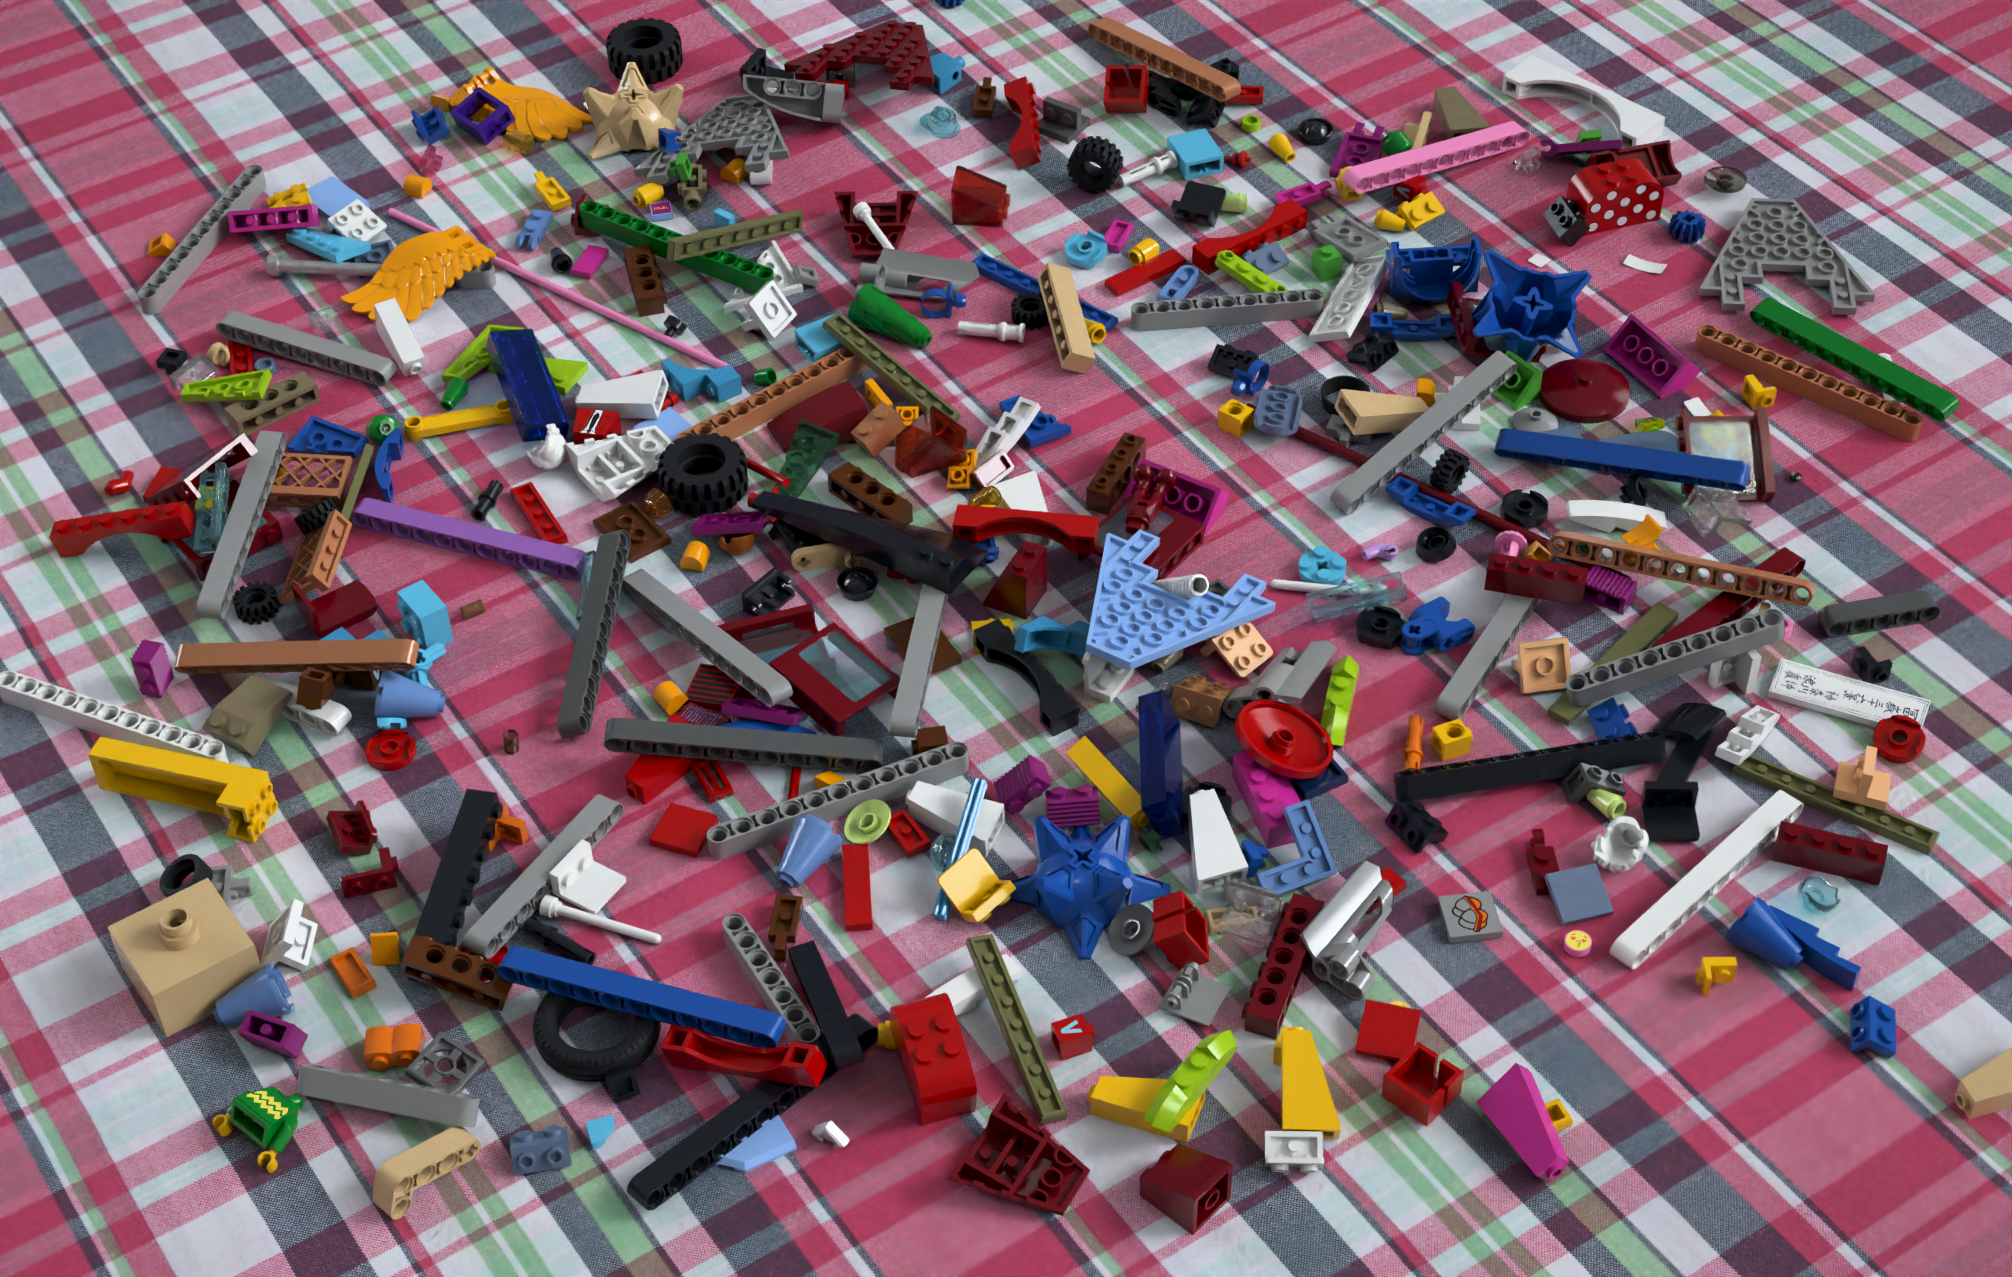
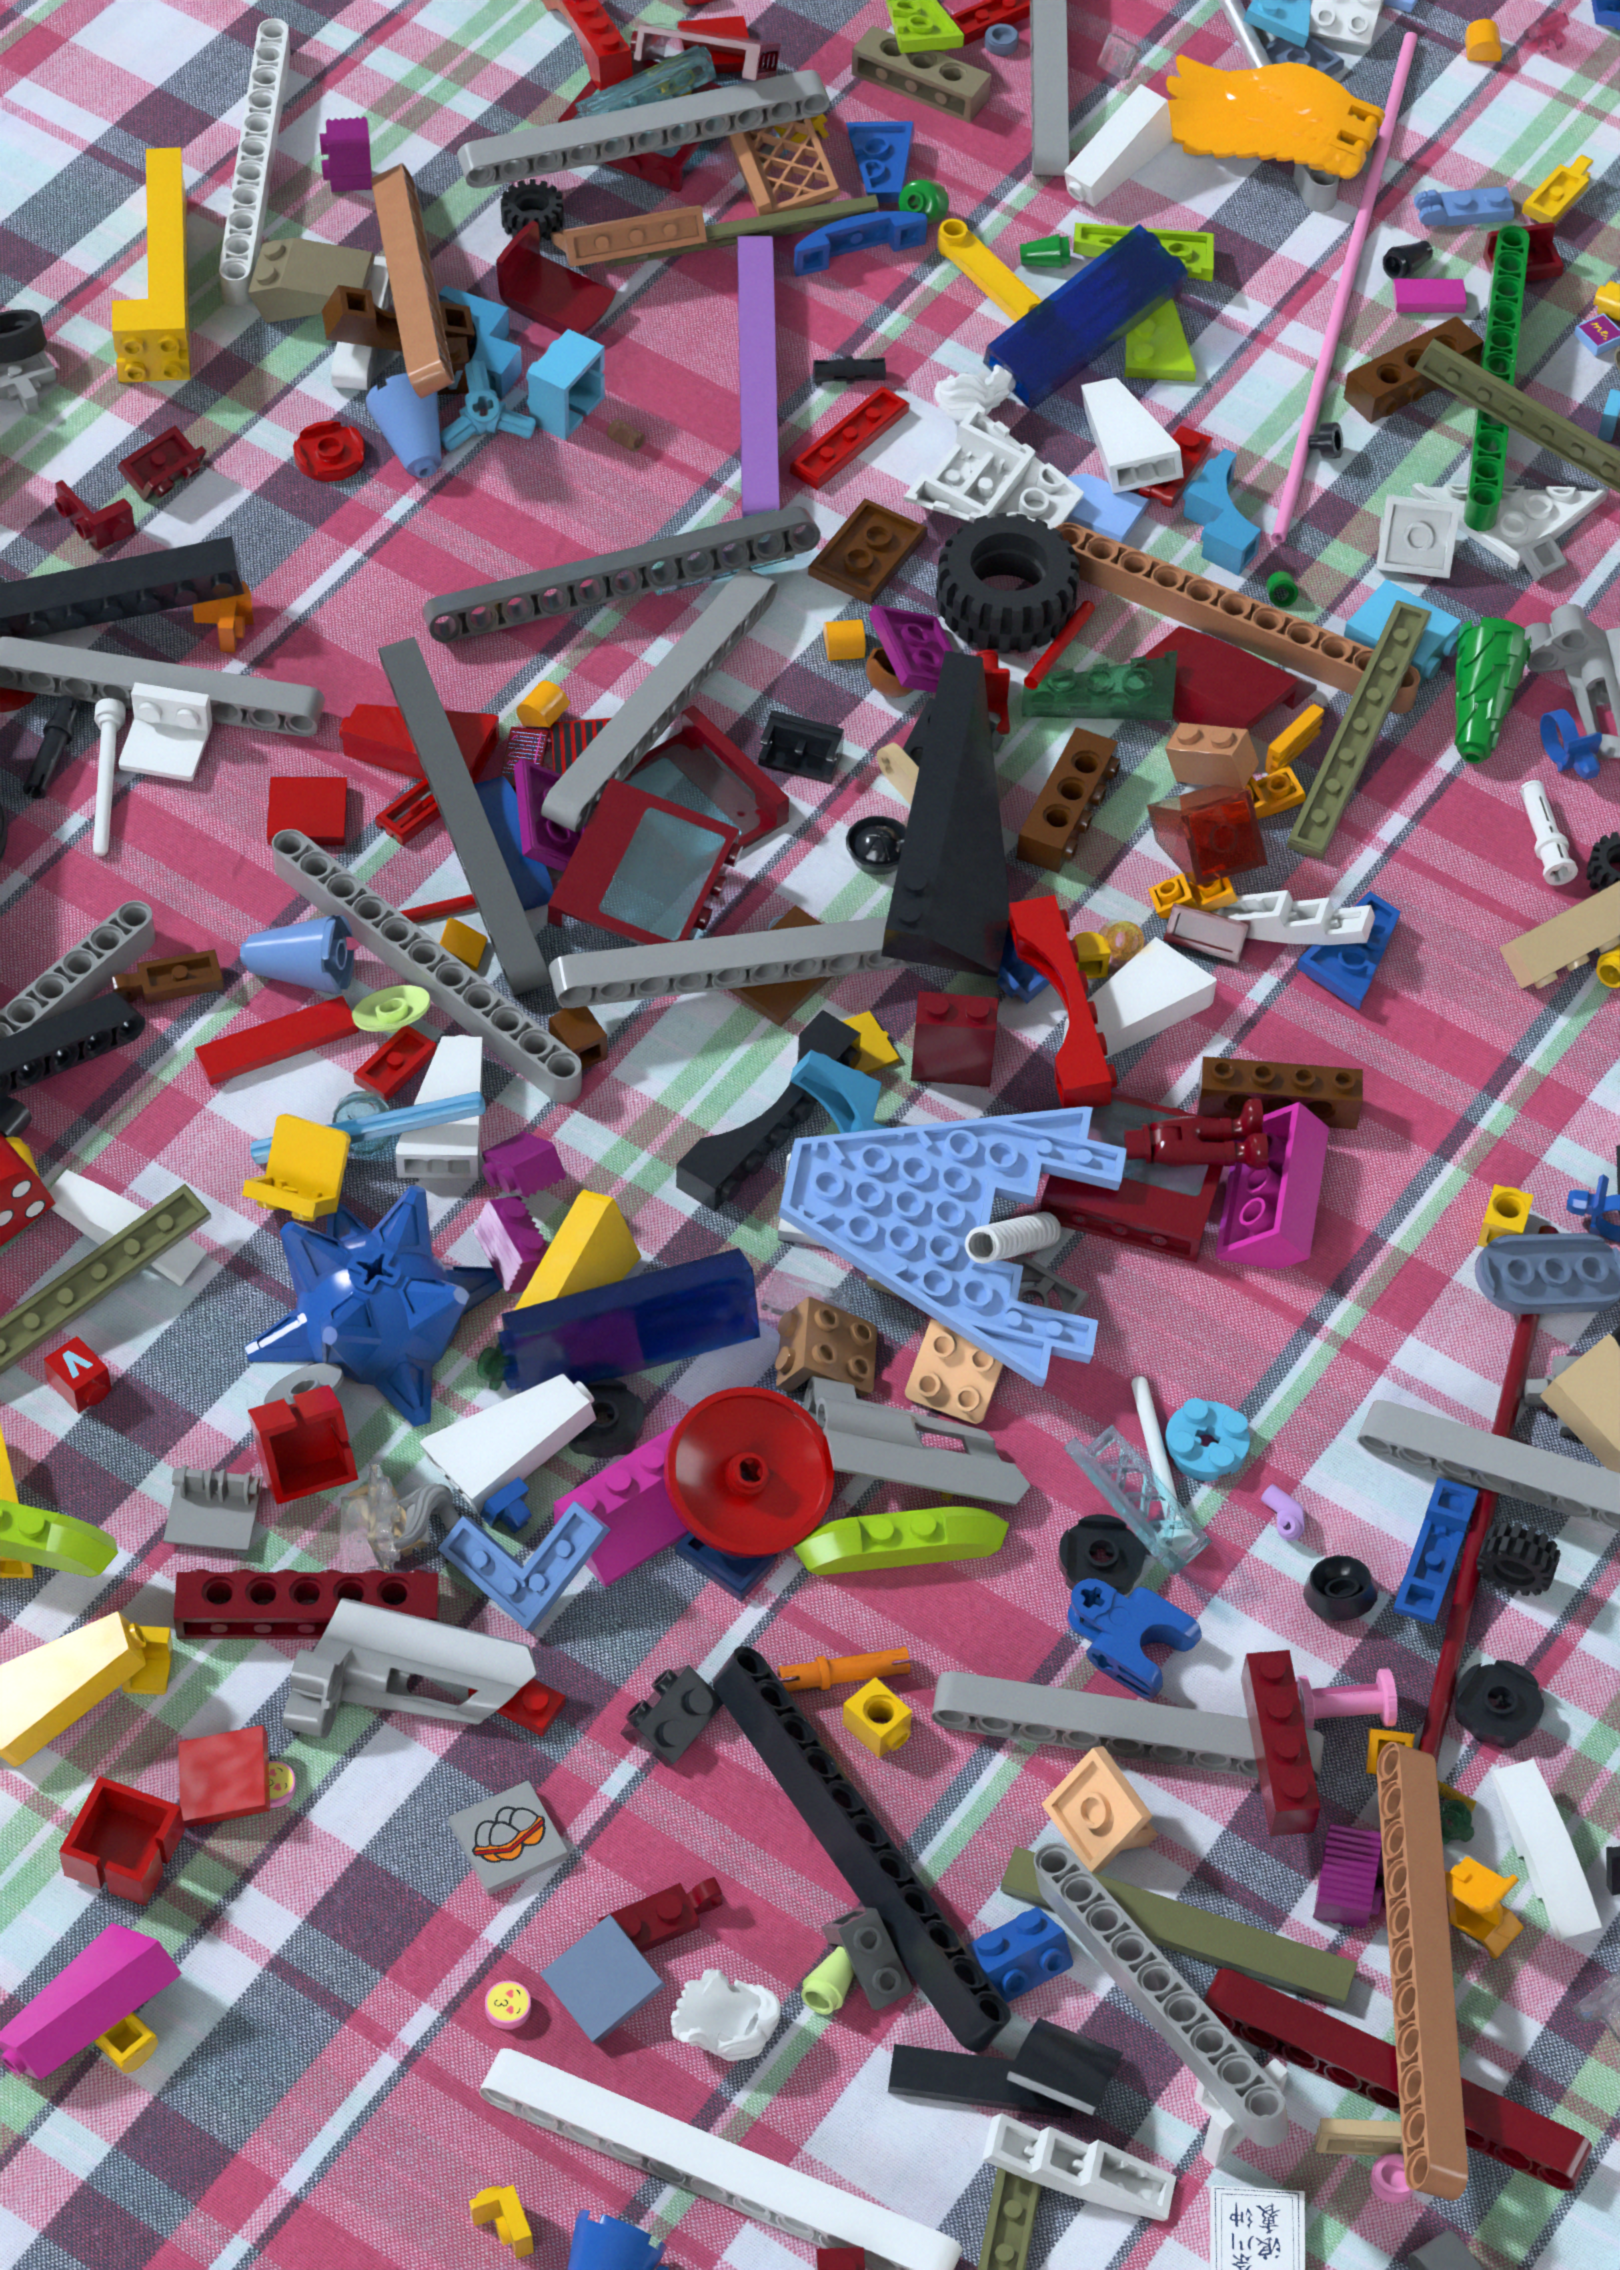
camera: 65 degrees right, 10 degrees up
(315, 516) = (715, 202): black tyre -> none
(391, 723) = (362, 421): medium azure tile -> none
(511, 741) = (381, 566): reddish brown piece -> none
(595, 424) = (1051, 429): red torso -> none
(657, 504) = (923, 556): clear orange piece -> none
(1670, 810) = (841, 2082): black bracket -> none

